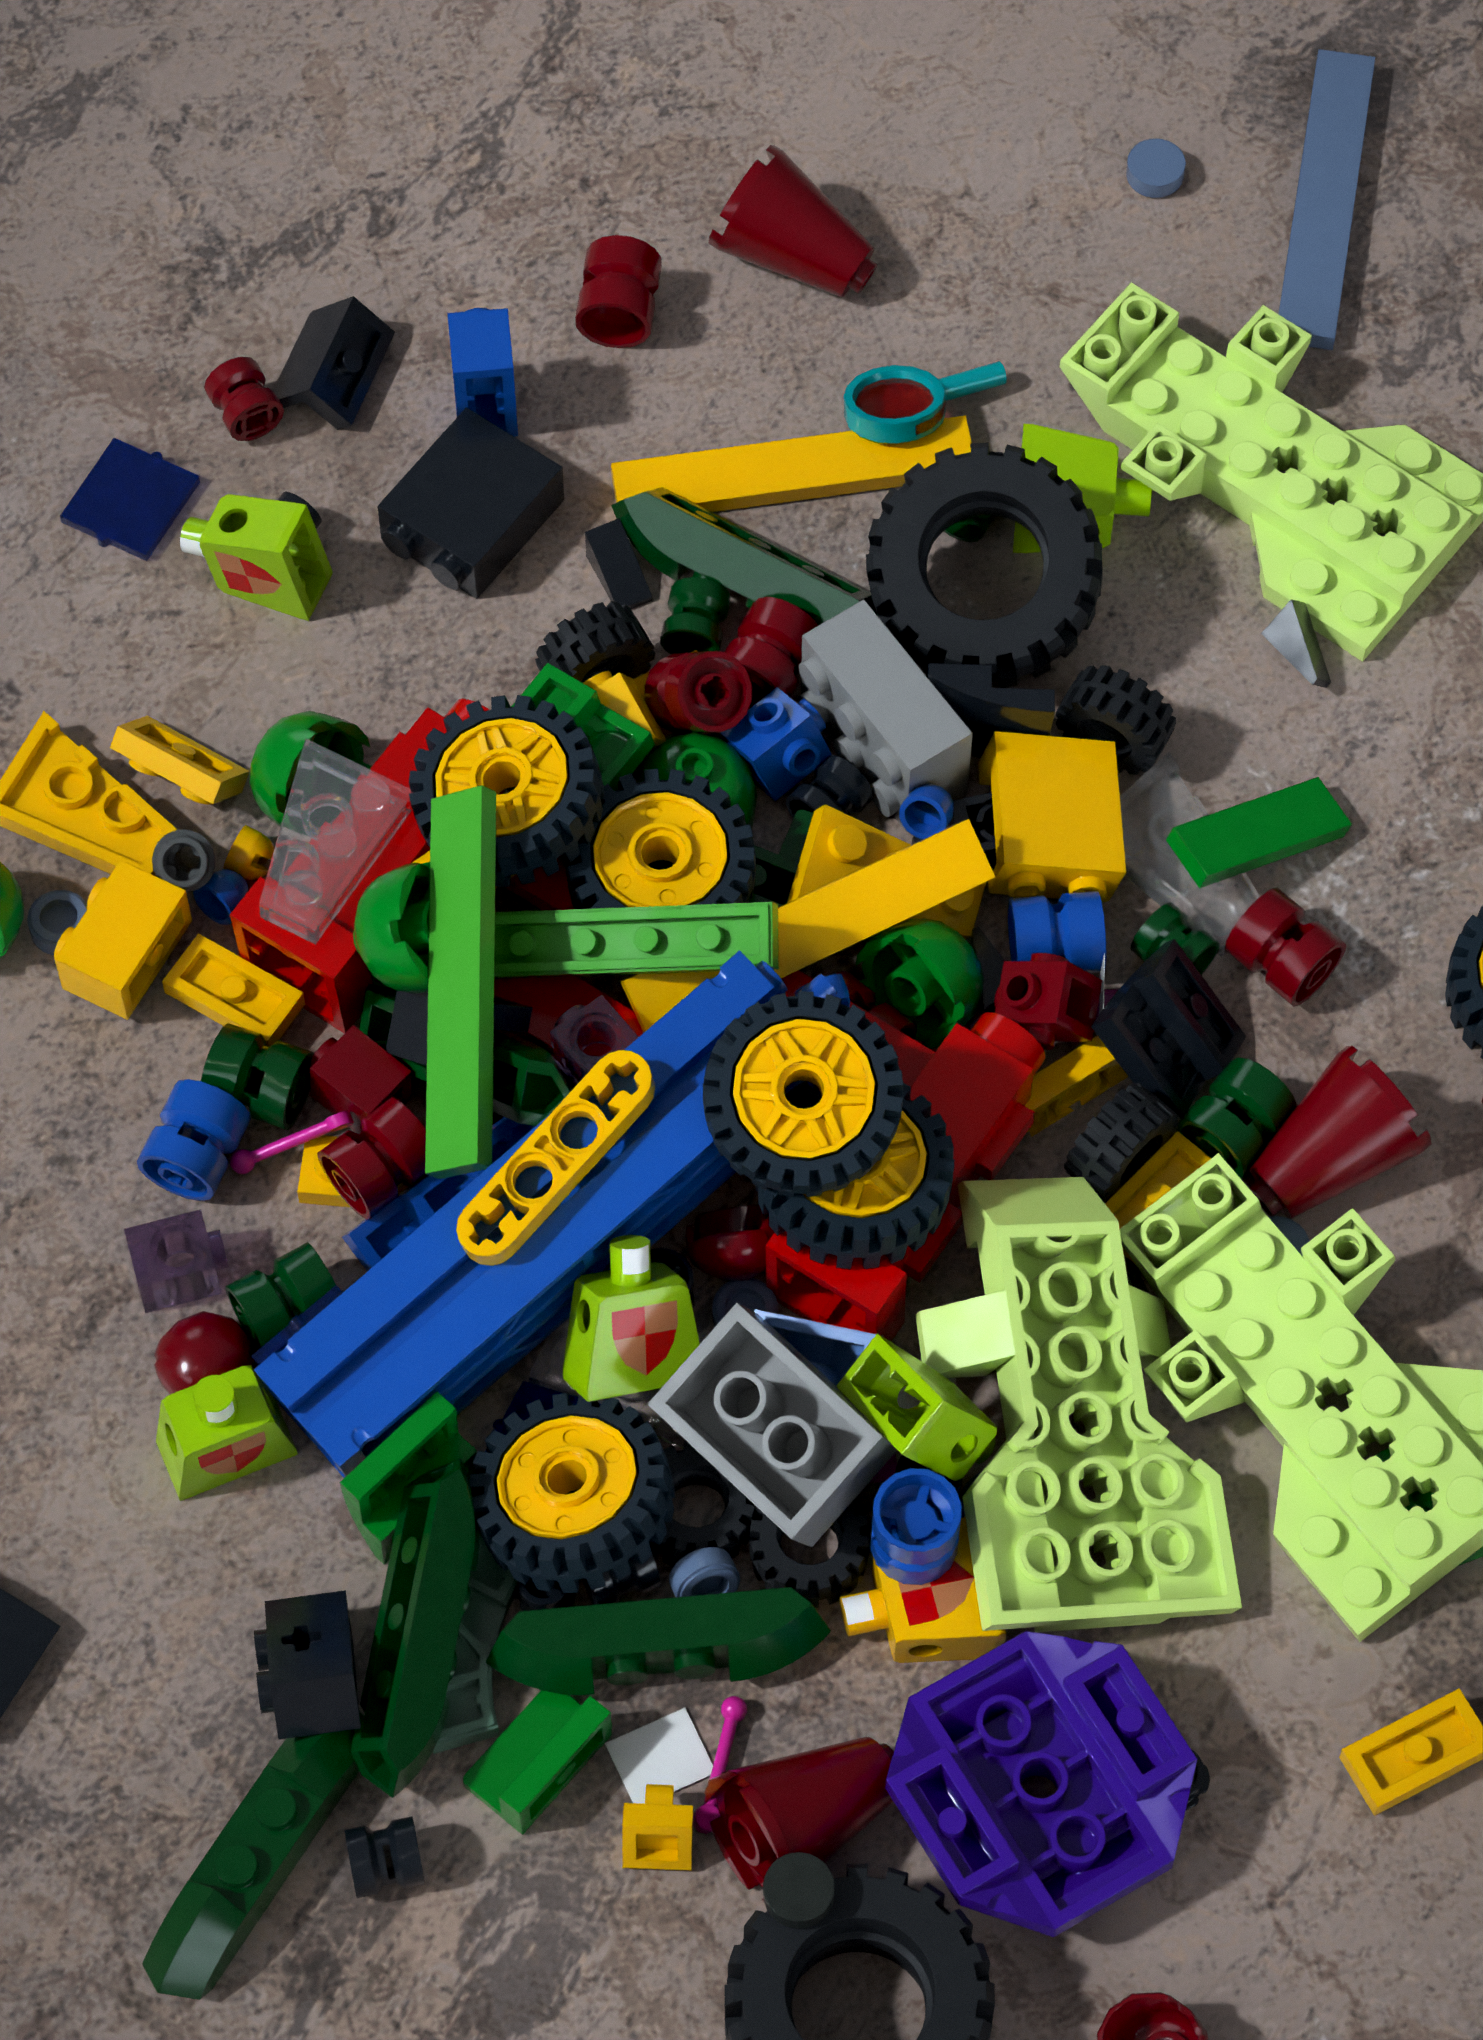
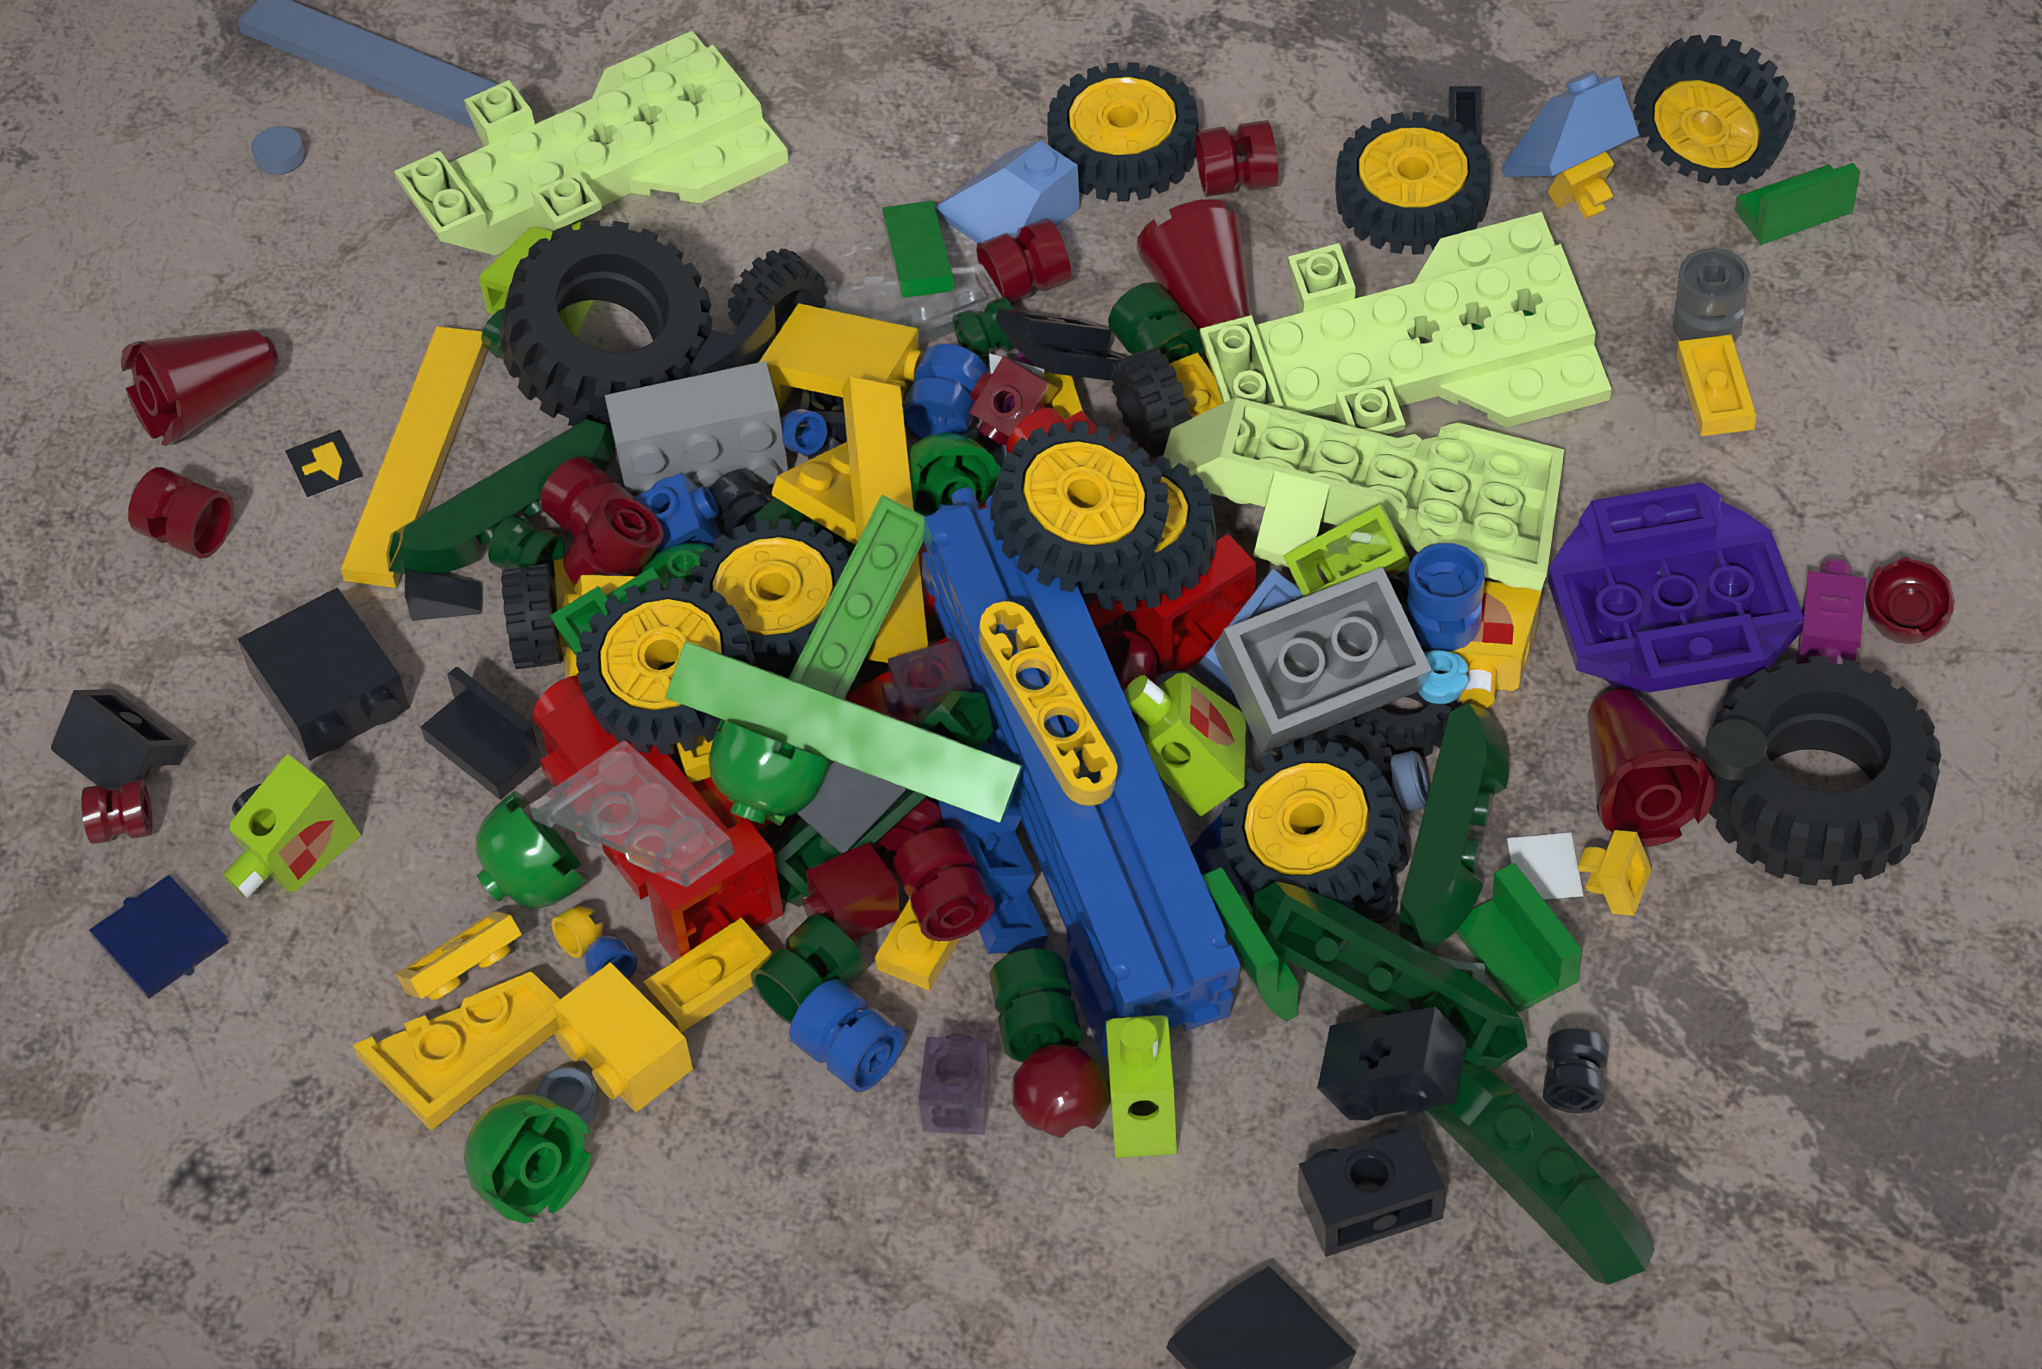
camera: 65 degrees left, 10 degrees down
(168, 862) = (571, 961): dark grey cone -> none
(183, 1731) = (1351, 1216): none -> black brick
(243, 1160) = (883, 924): dark pink hinge -> none
(449, 668) = (483, 736): none -> black panel
(484, 365) = (207, 613): blue brick -> none
(733, 1711) = (1525, 801): dark pink hinge -> none
(755, 392) = (323, 463): none -> black sticker
(839, 1577) = (1447, 686): none -> medium azure plate
(908, 402) = (403, 360): teal piece -> none
(1089, 1970) = (1832, 613): none -> magenta piece
(1296, 640) = (758, 185): piece -> none
(1388, 904) = (1014, 192): none -> medium blue slope

